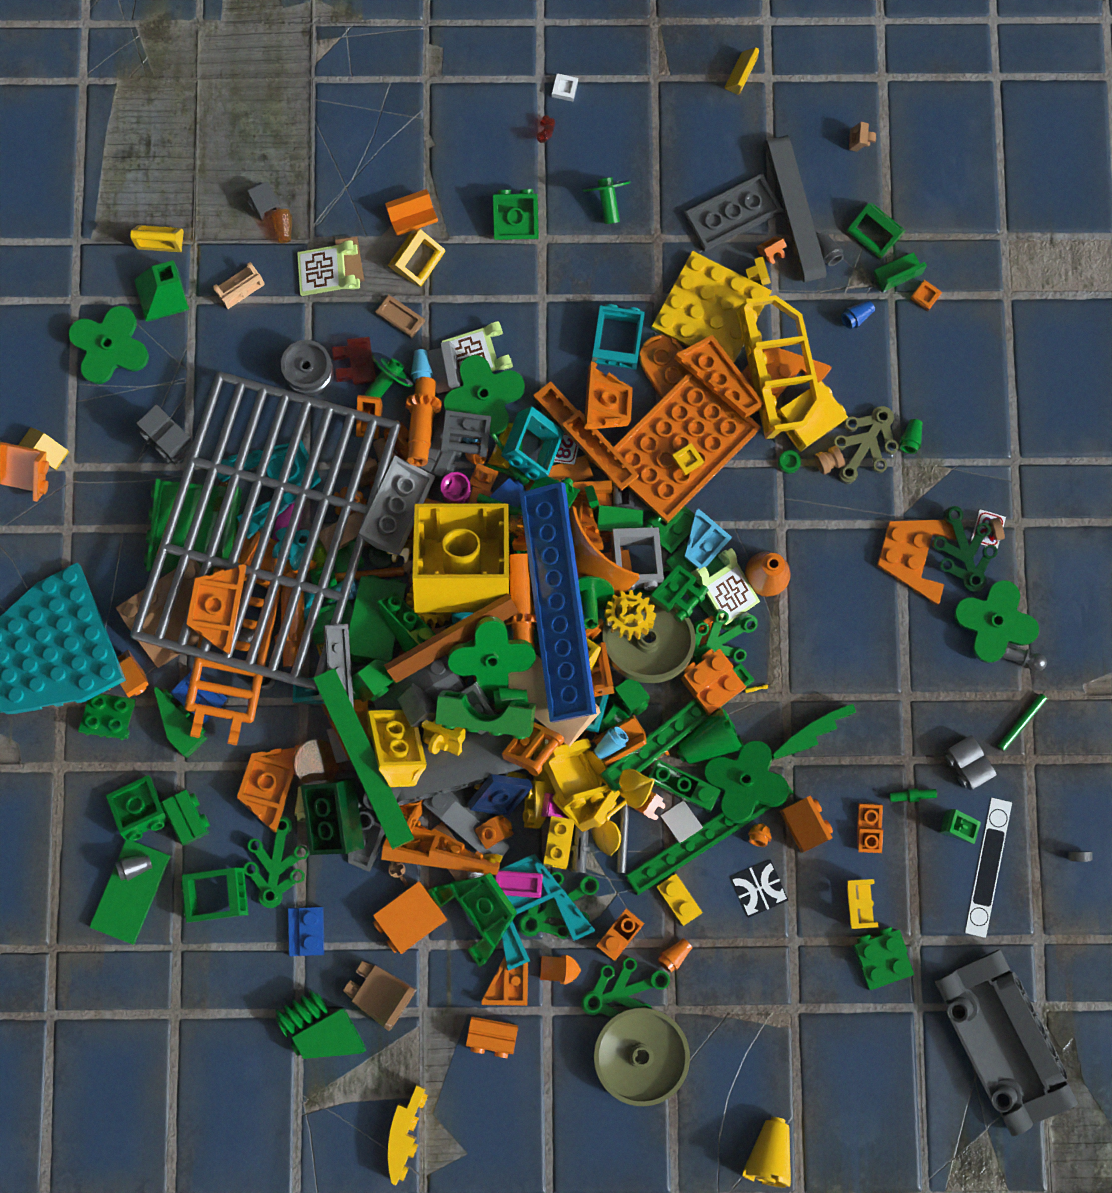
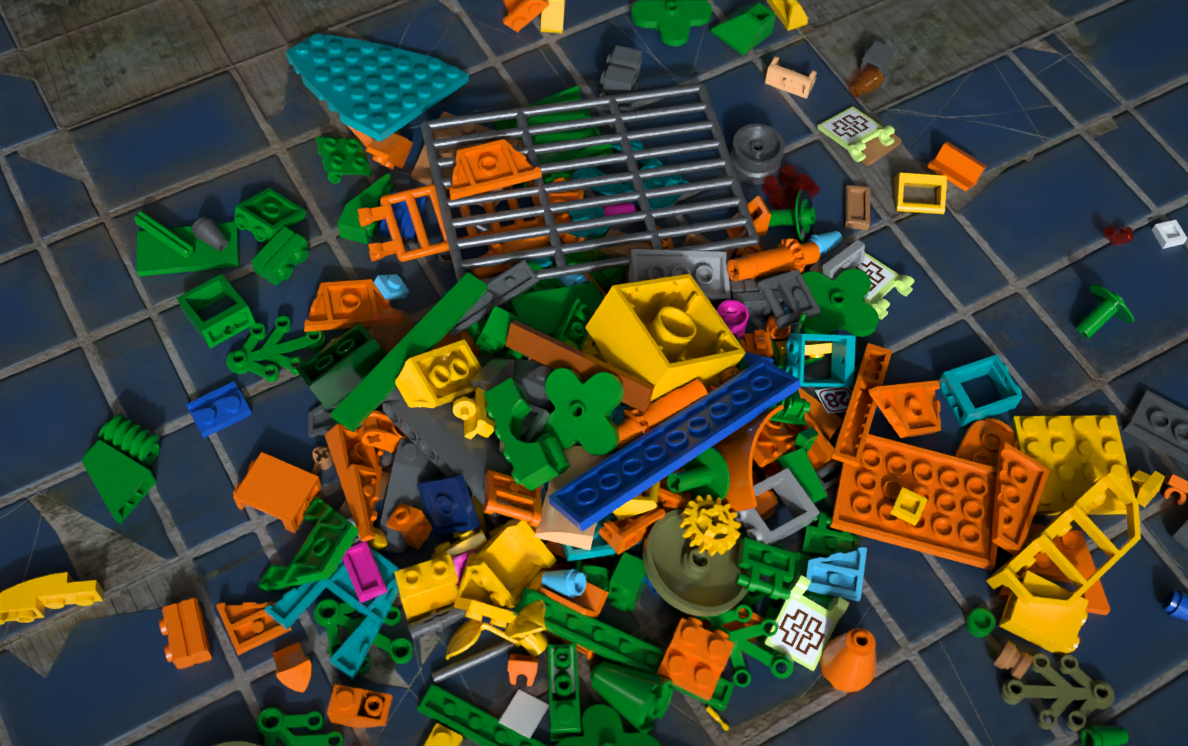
camera: 60 degrees right, 20 degrees down
(109, 905) = (164, 234): none -> green axle
(267, 740) = (391, 286): none -> medium azure plate
(381, 994) = (181, 505): medium nougat hips -> none
(515, 215) = (1022, 248): green plate -> none

